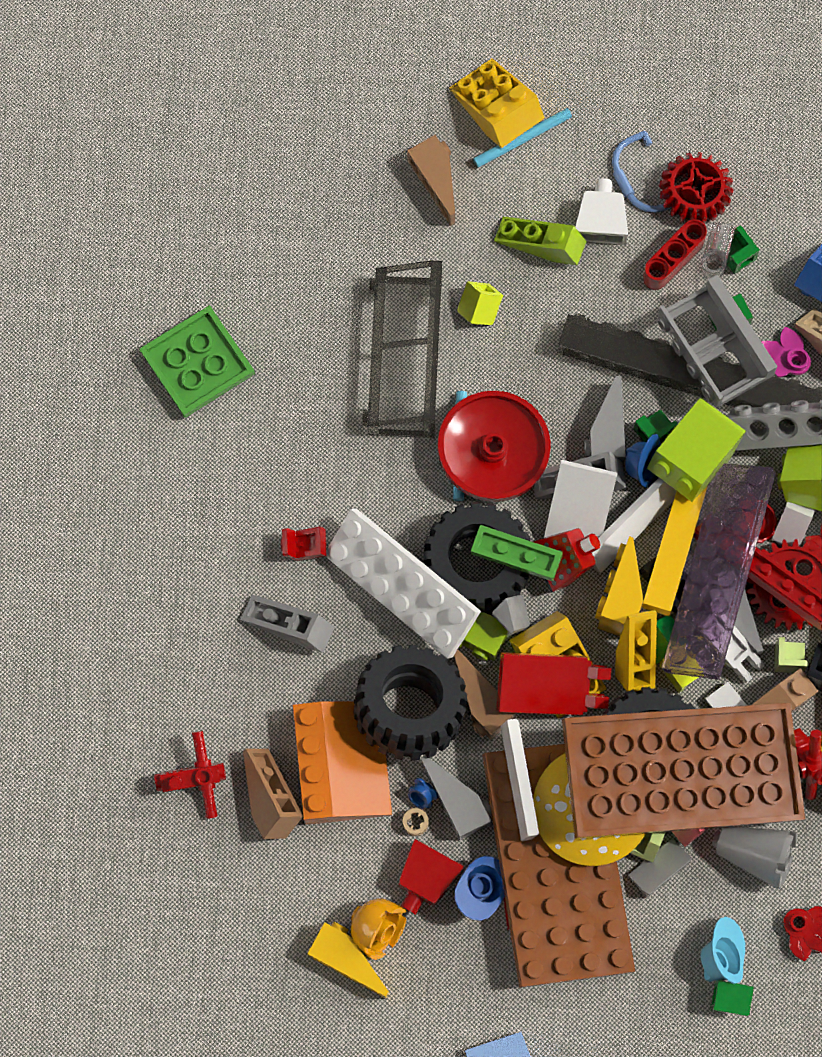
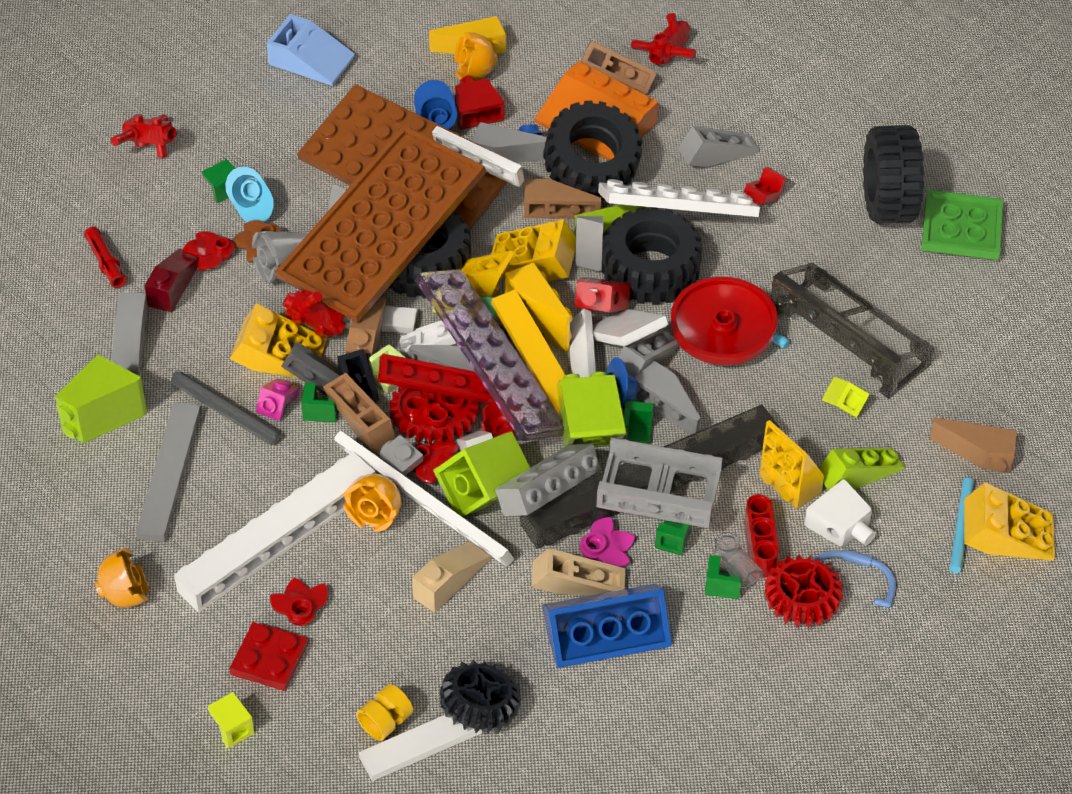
camera: 130 degrees right, 25 degrees down
(219, 425) = (893, 174): none -> black tyre
(407, 818) = (516, 118): tan bush -> none
(516, 553) = (627, 252): bright green hinge -> none
(549, 684) = (522, 220): red tile -> none
(601, 272) = (789, 468): none -> yellow slope
(763, 908) = (244, 238): none -> dark orange plate

